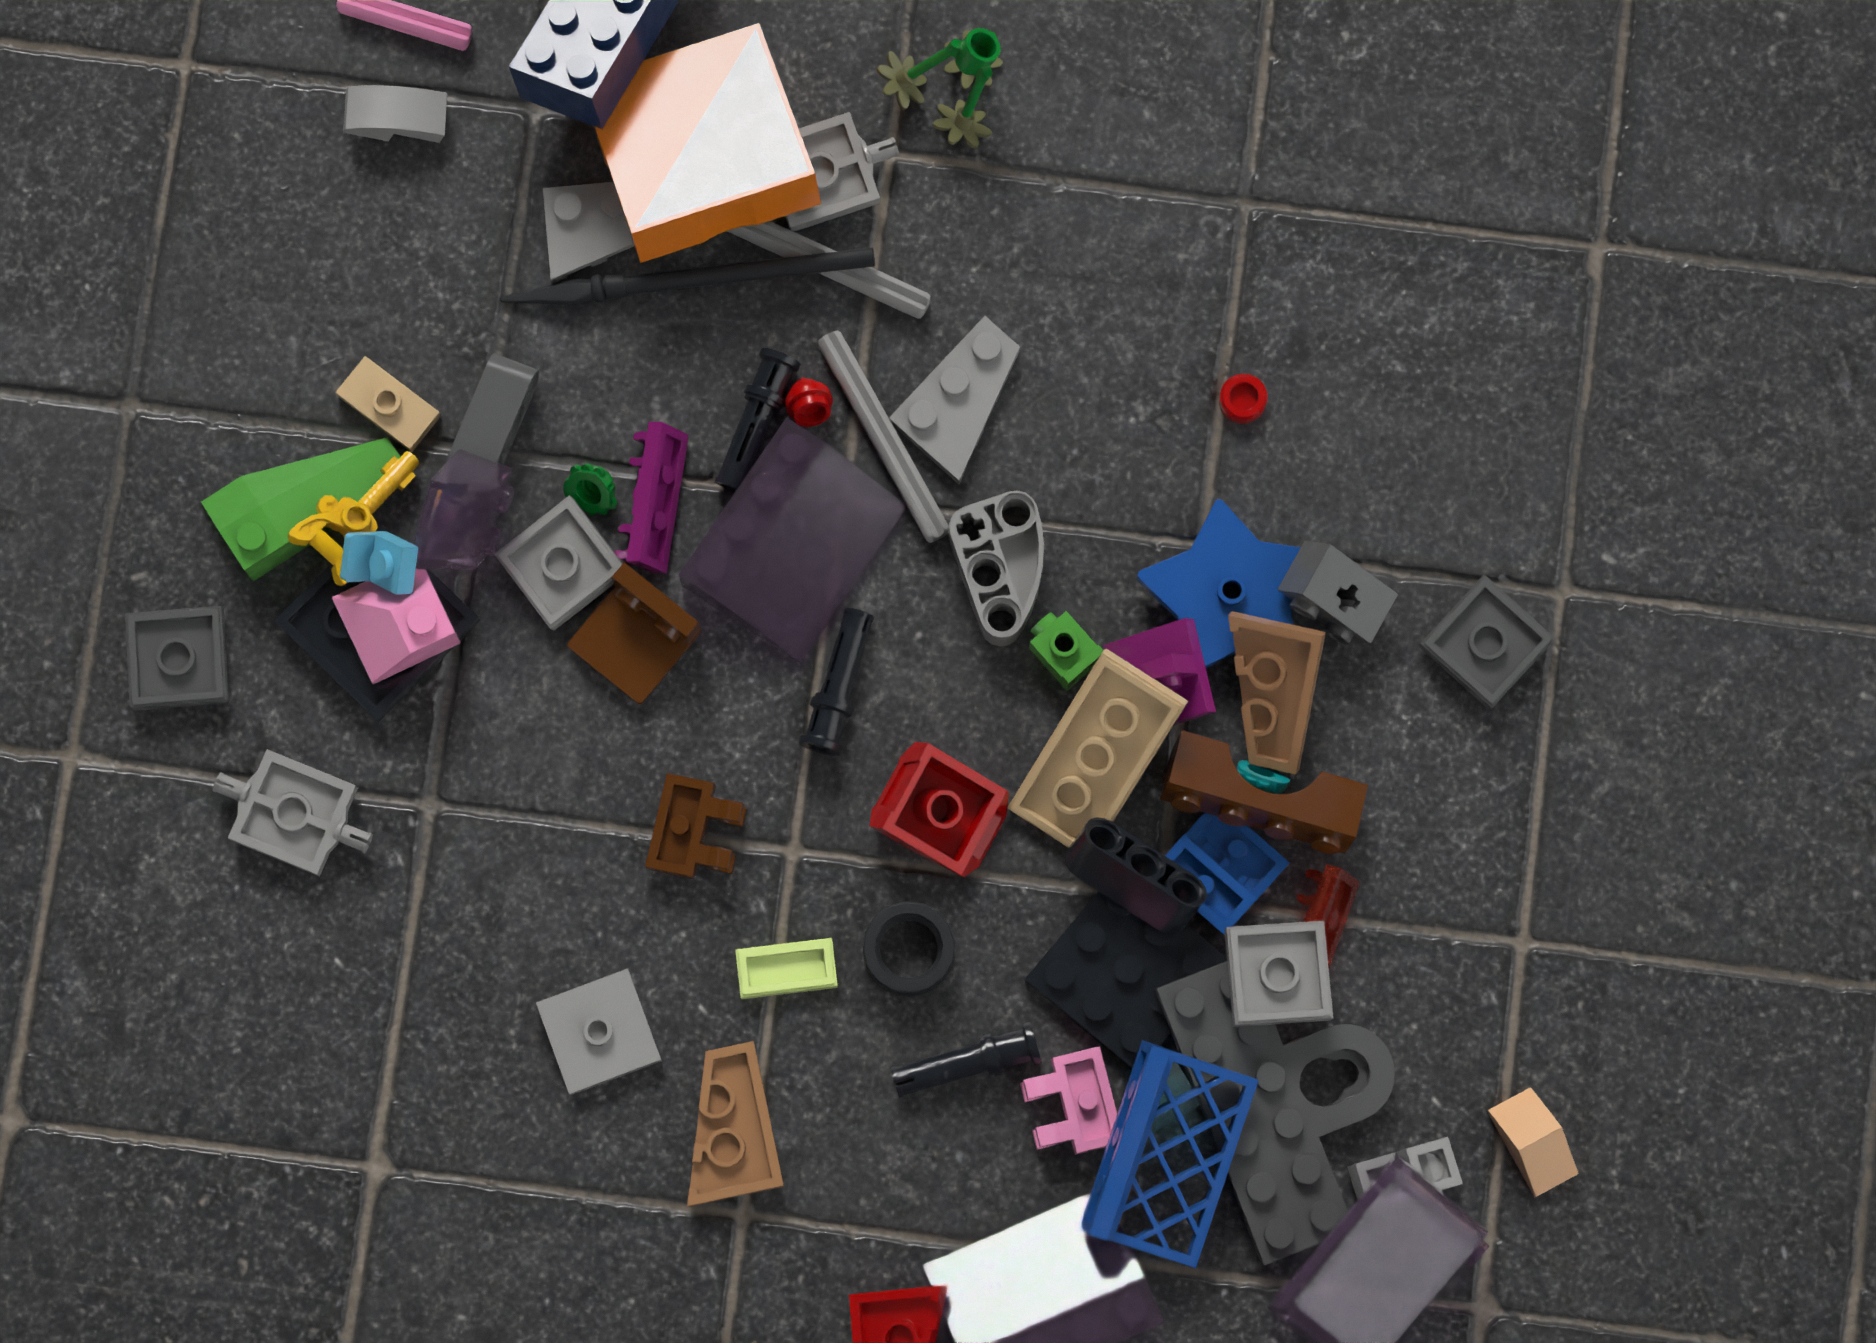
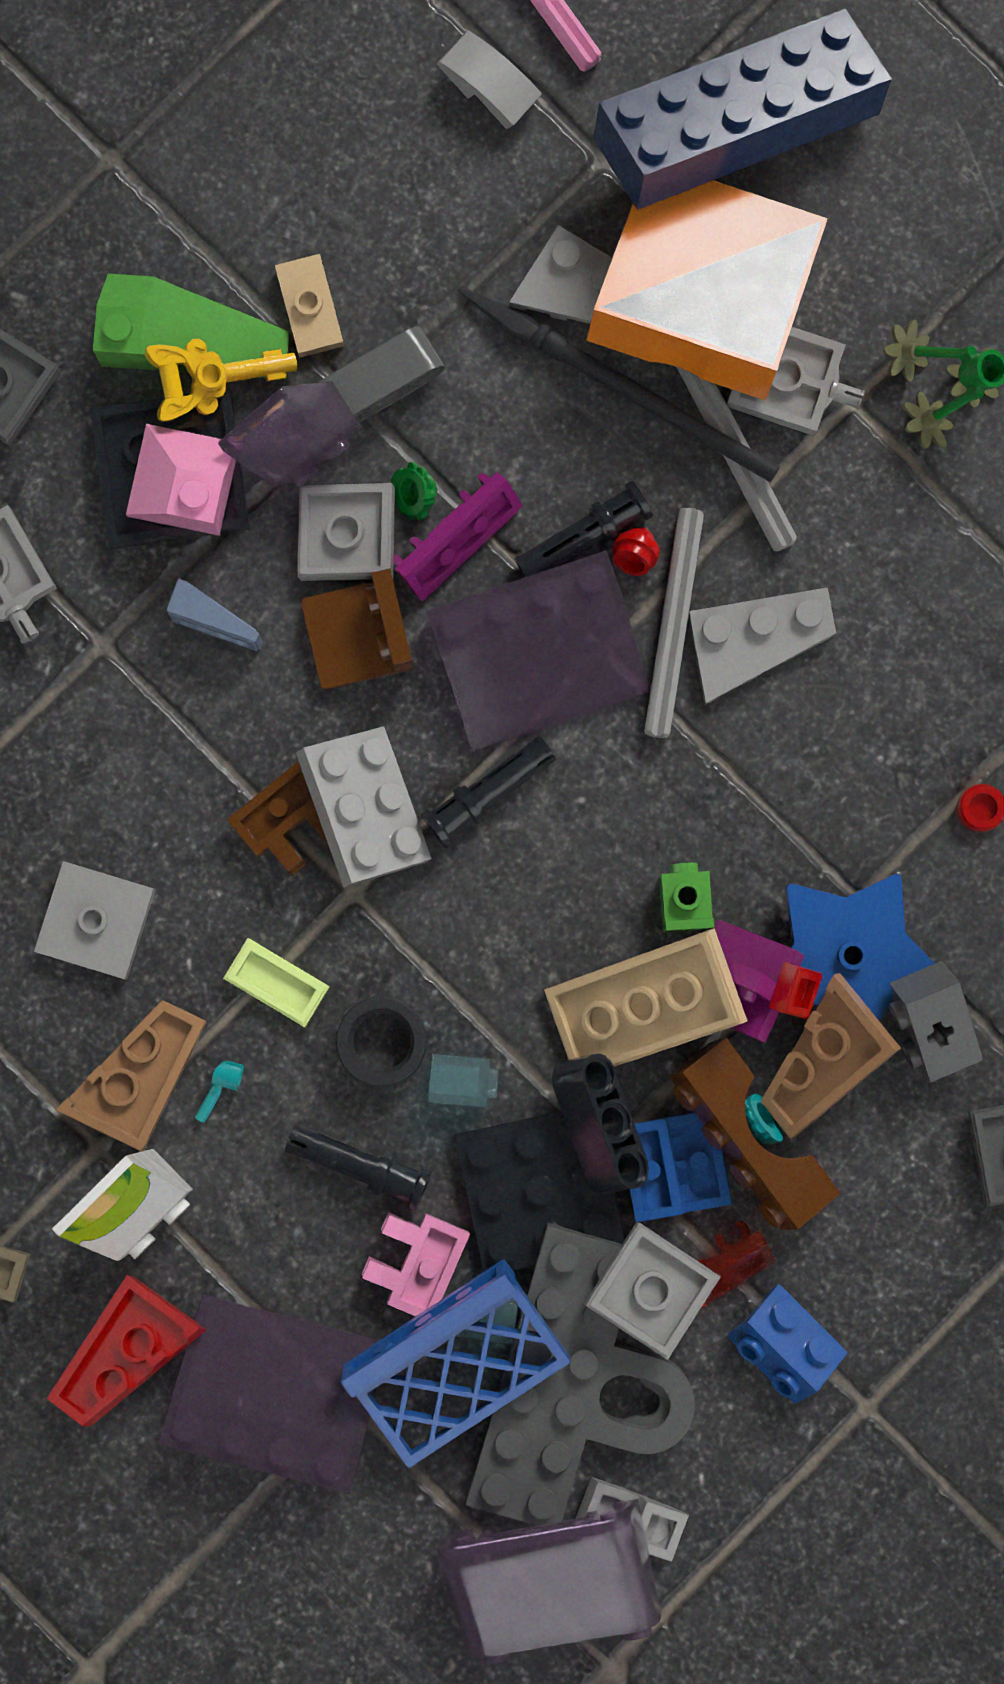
camera: 35 degrees right, 5 degrees up
(379, 559) = (201, 420): medium azure bracket -> none
(500, 715) = (201, 613): none -> sand blue slope
(748, 770) = (363, 806): none -> light grey plate
(805, 1073) = (226, 1075): none -> teal hand
(811, 1229) = (126, 1207): none -> white slope
(940, 809) = (489, 951): red slope -> none
(997, 930) = (461, 1080): none -> clear light blue brick
(1009, 550) = (703, 791): light grey beam -> none
(1208, 650) = (796, 990): none -> red tile
(1420, 941) = (787, 1345): none -> blue bracket
(1534, 1141) = (754, 1571): light nougat slope -> none

